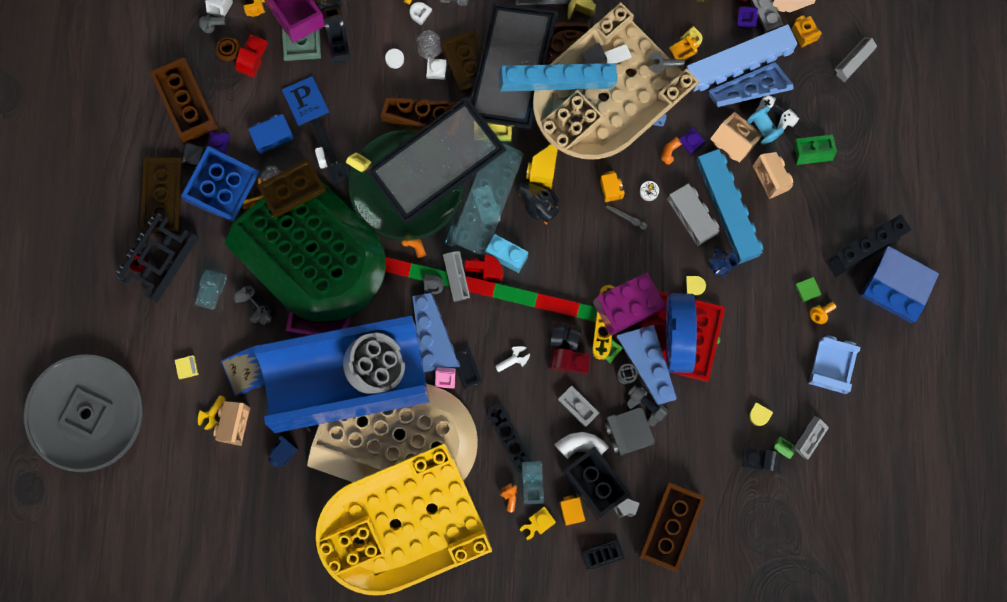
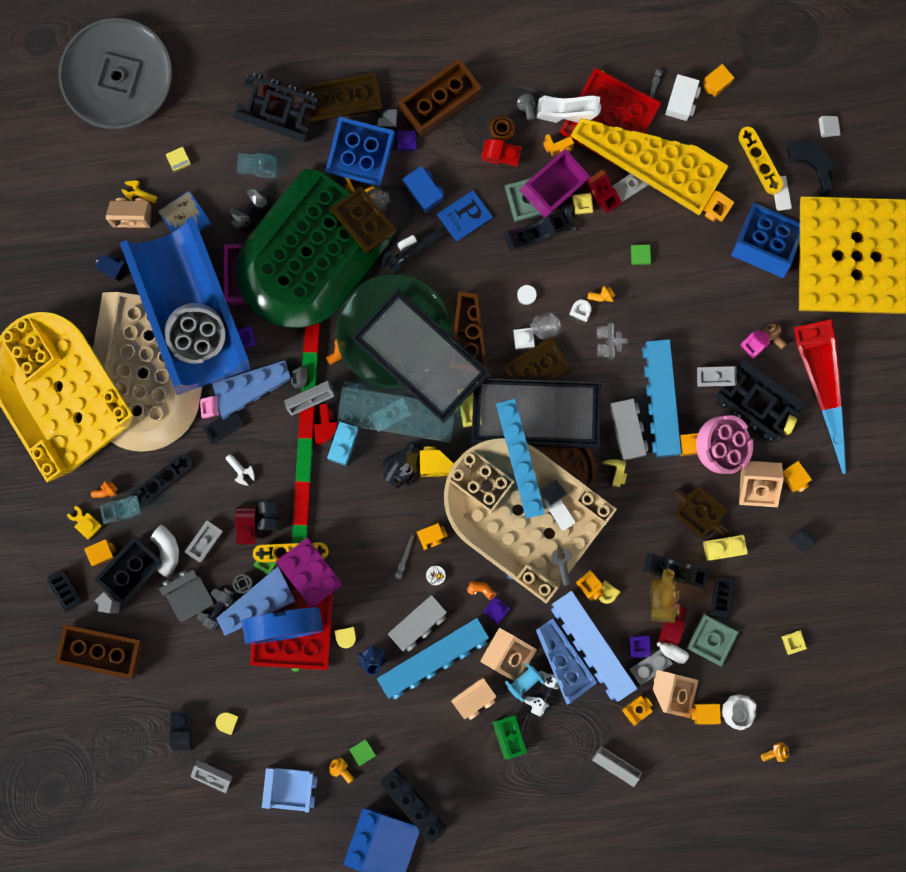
camera: 85 degrees right, 5 degrees up
(358, 162) = (404, 279): light yellow tile -> none
(784, 447) = (197, 751): bright green tile -> none

